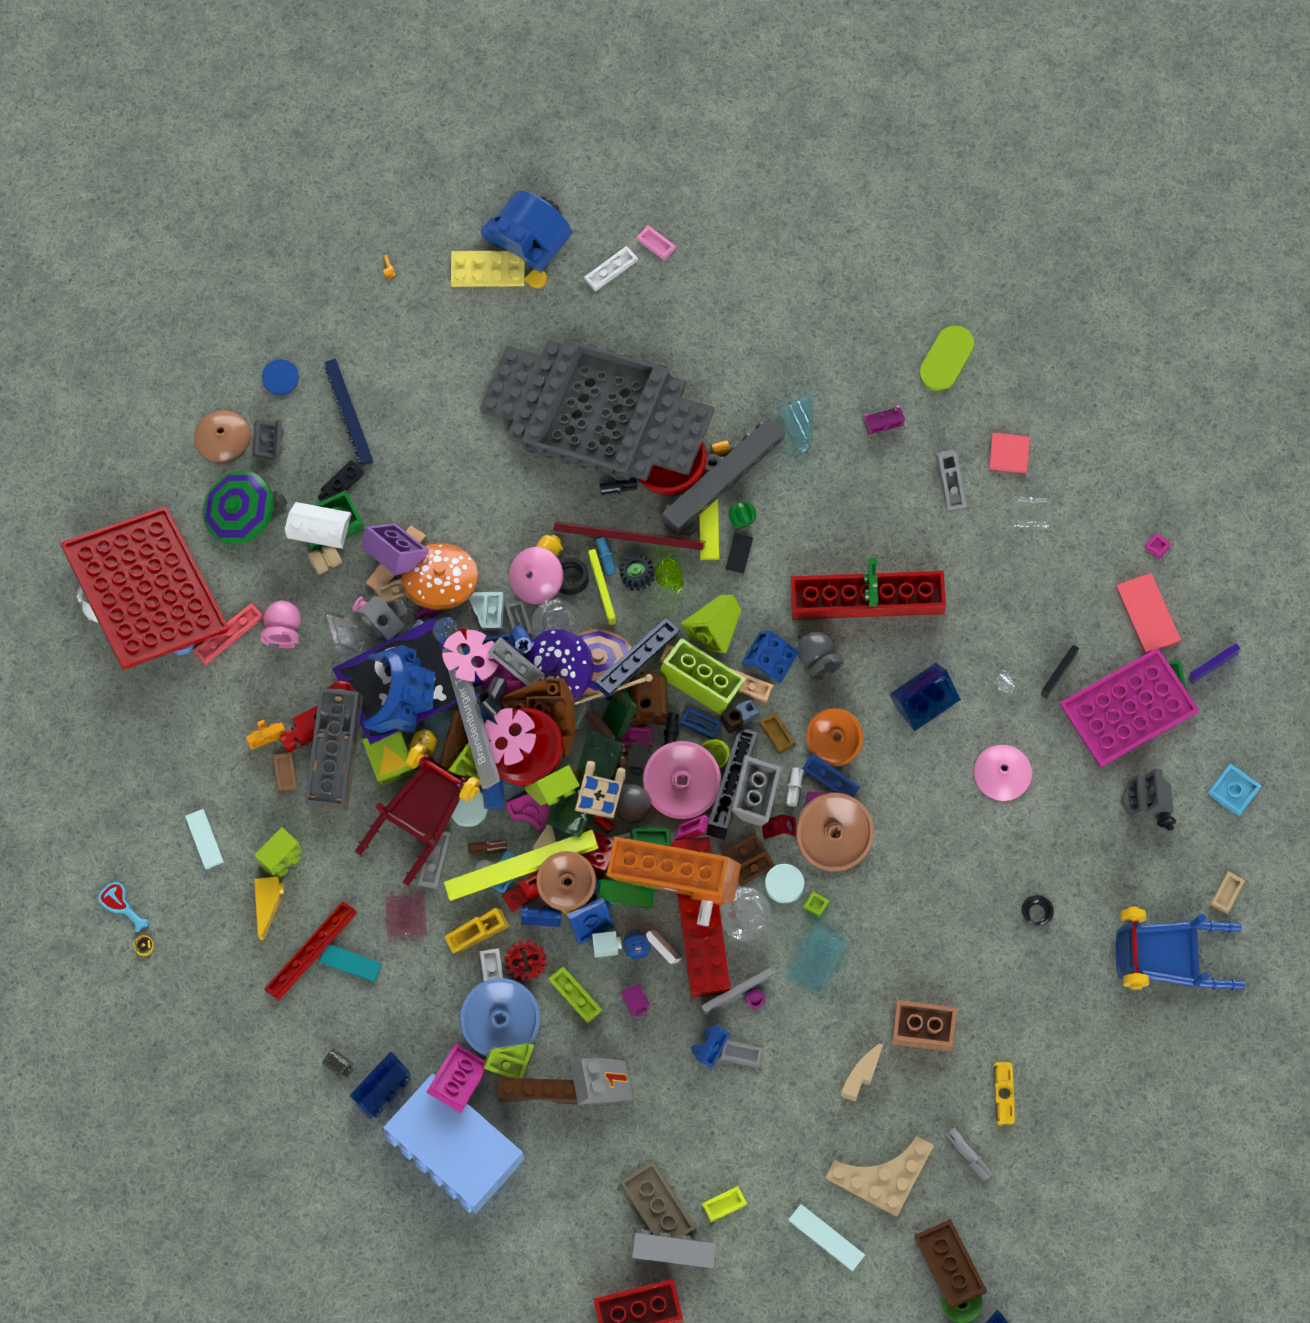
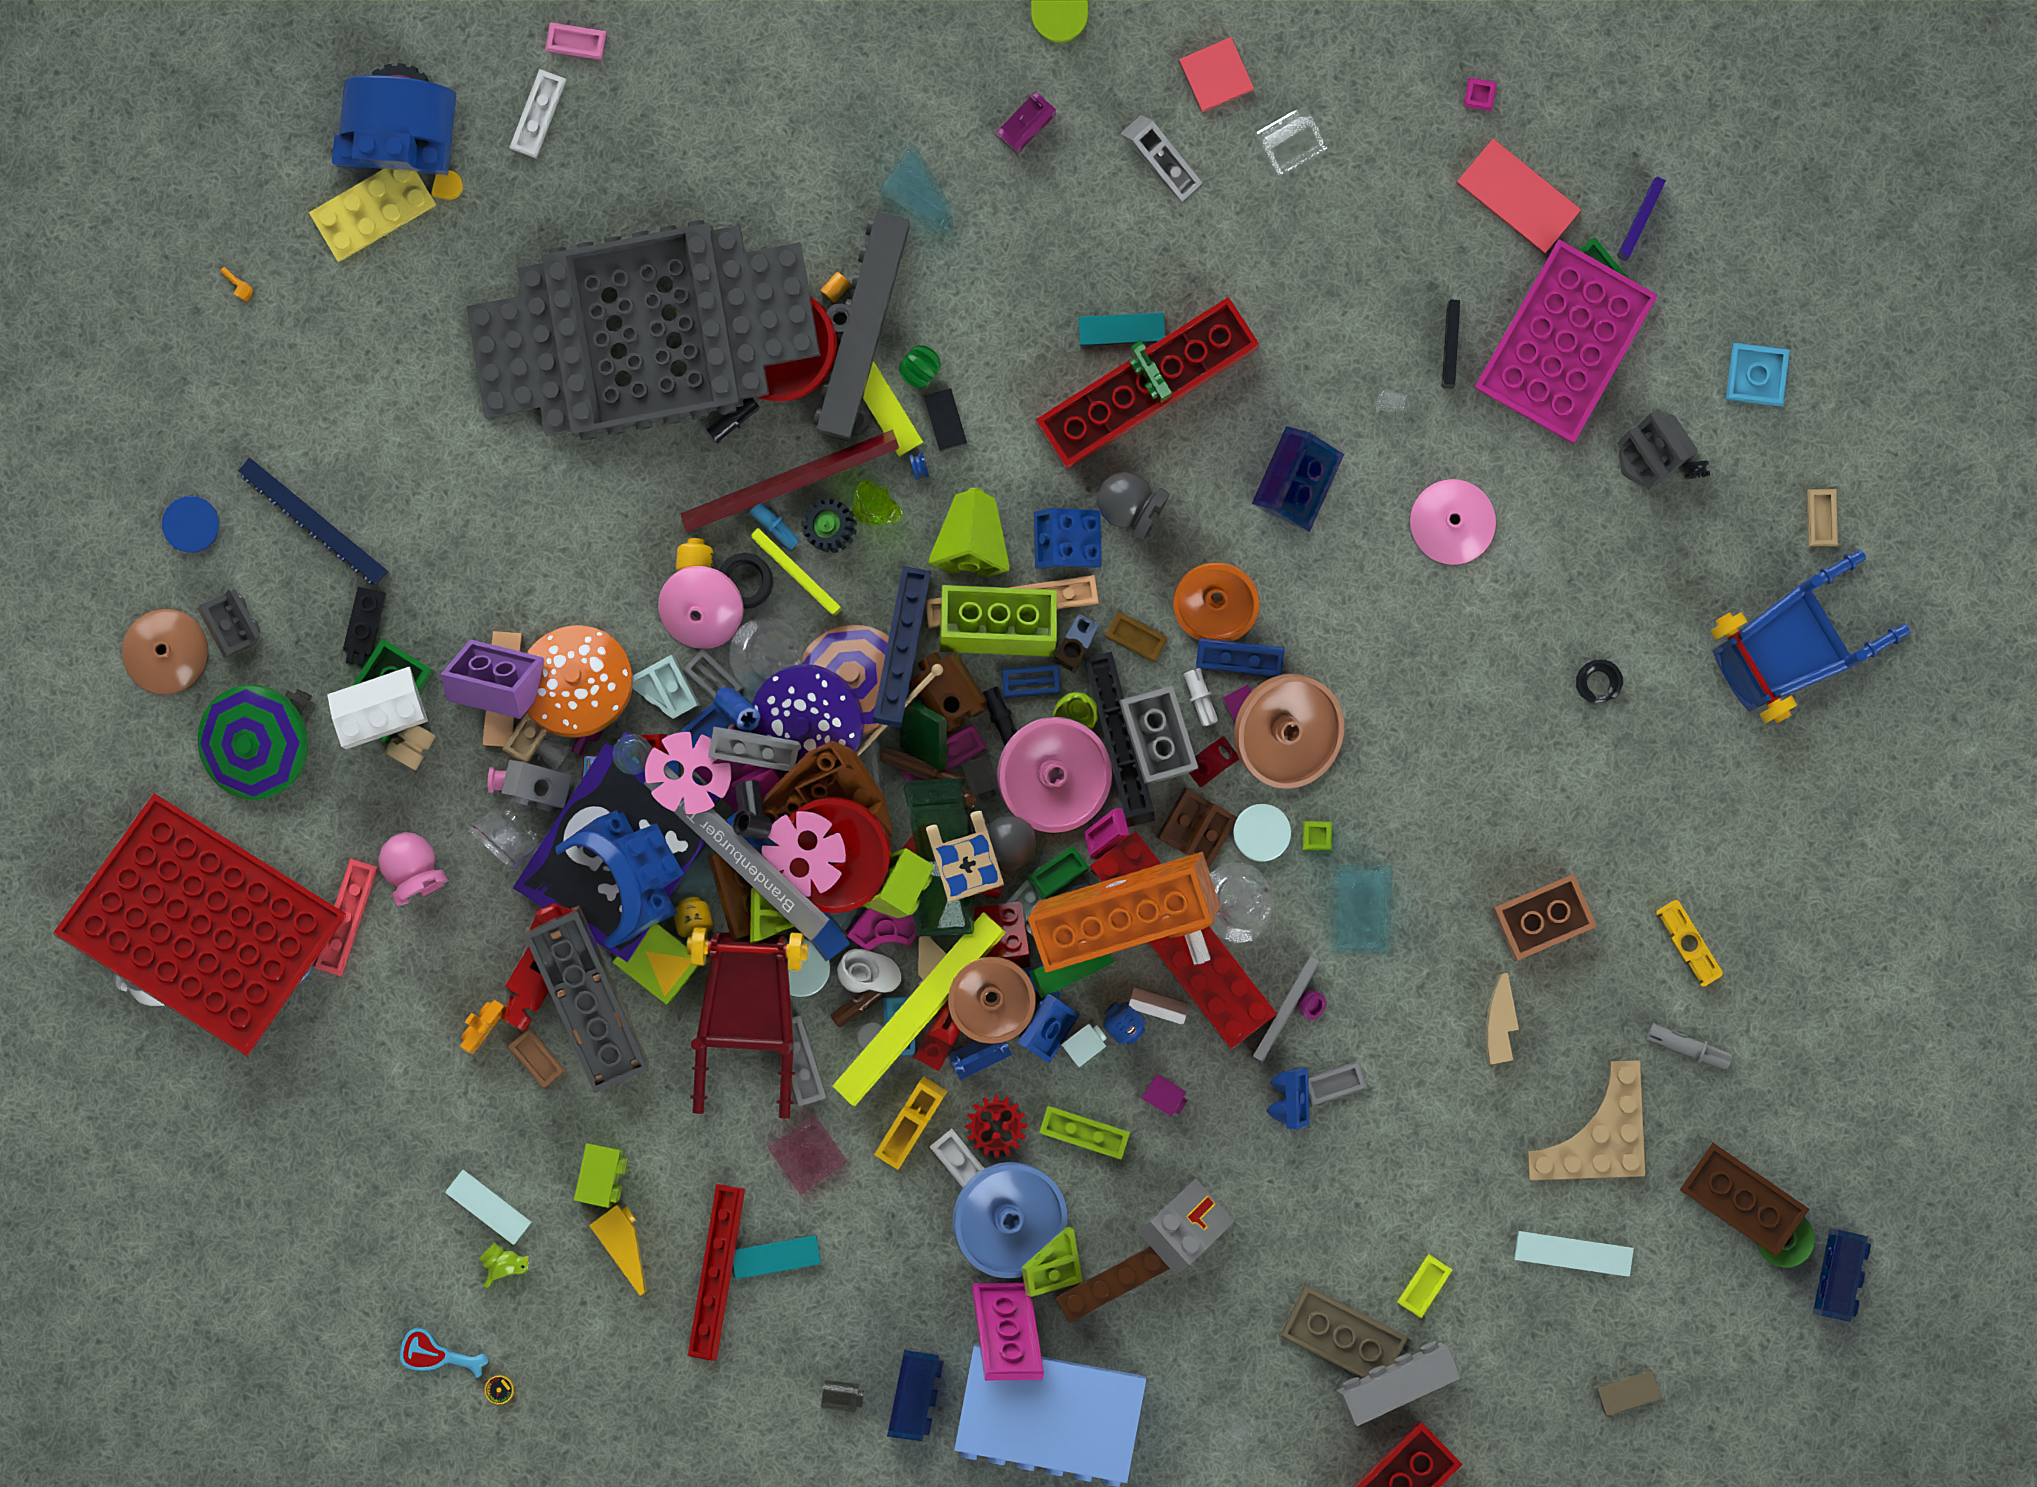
camera: 30 degrees left, 15 degrees up
(191, 874) = (502, 1263): none -> lime animal
(503, 827) = (866, 970): none -> white cap
(708, 569) = (918, 465): none -> blue bush
(860, 555) = (1121, 329): none -> teal tile

